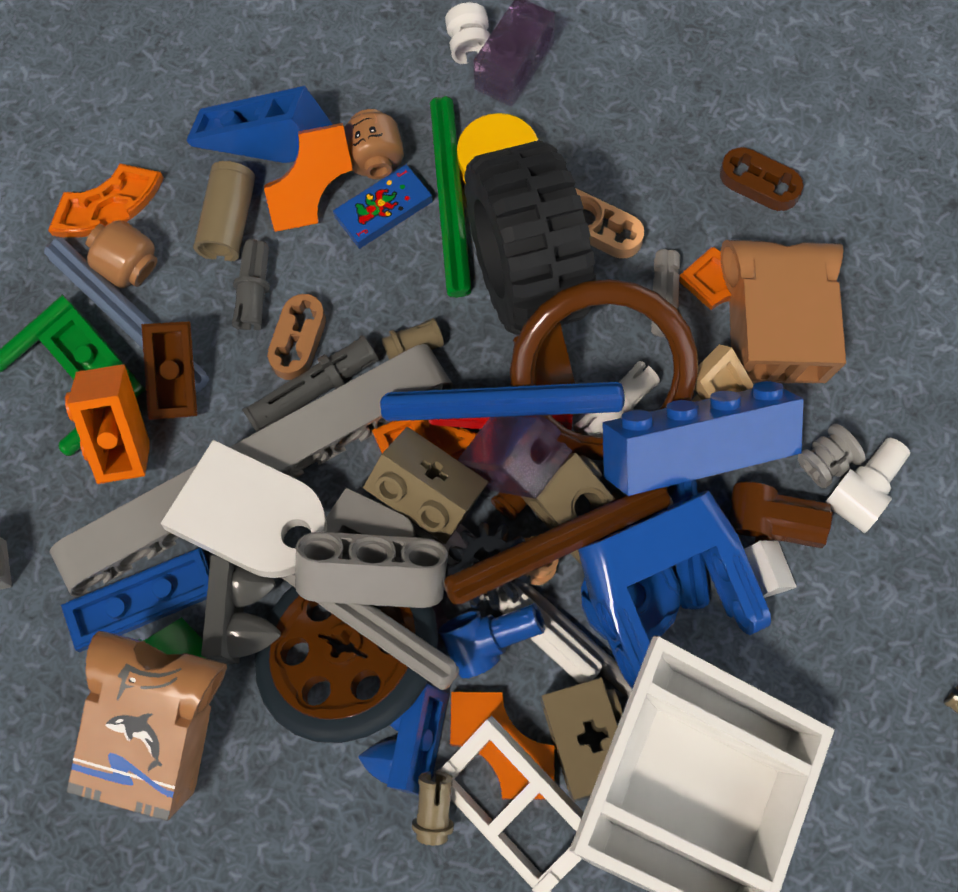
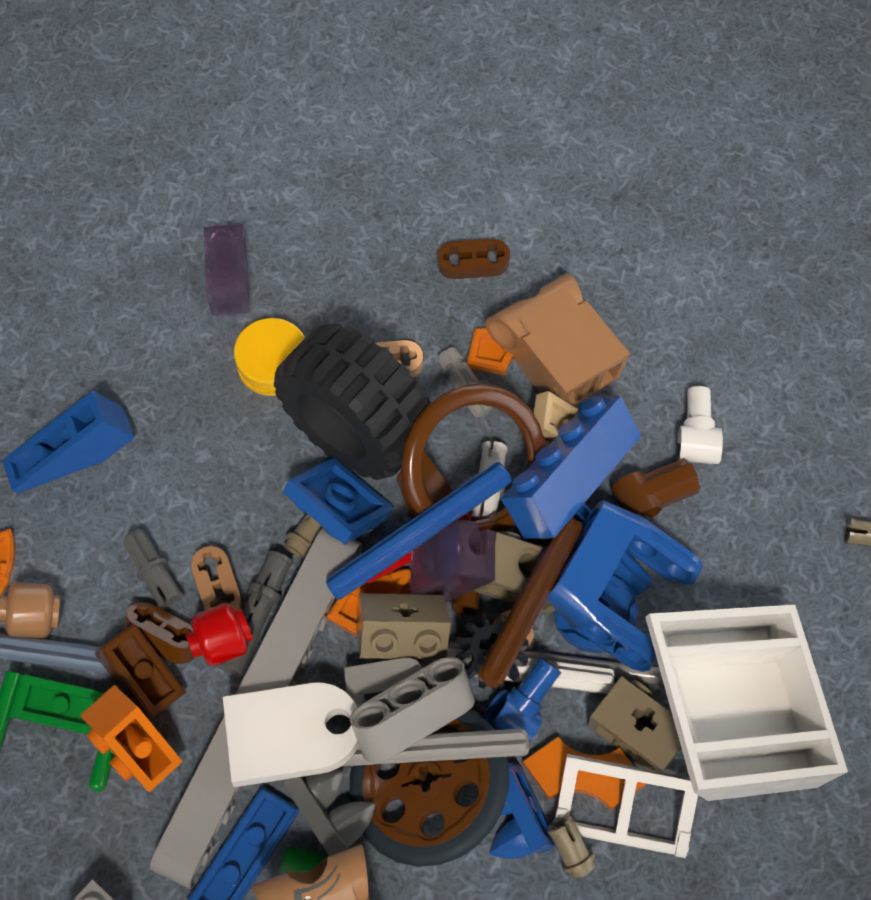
camera: 40 degrees left, 5 degrees down
(220, 347) = (162, 631): none -> reddish brown beam
(224, 211) = (88, 526): dark tan pin -> none
(255, 381) = (219, 634): none -> red head
(320, 159) = (138, 475): orange tile -> none
(373, 143) = (169, 404): medium nougat head -> none
(382, 206) = (208, 447): blue tile -> none
(450, 198) = (252, 404): green axle -> none
(456, 327) = (338, 500): none -> blue plate
(467, 28) = (176, 273): white wheel -> none
(770, 567) = (675, 527): white slope -> none
(831, 455) = (661, 425): light grey bush -> none

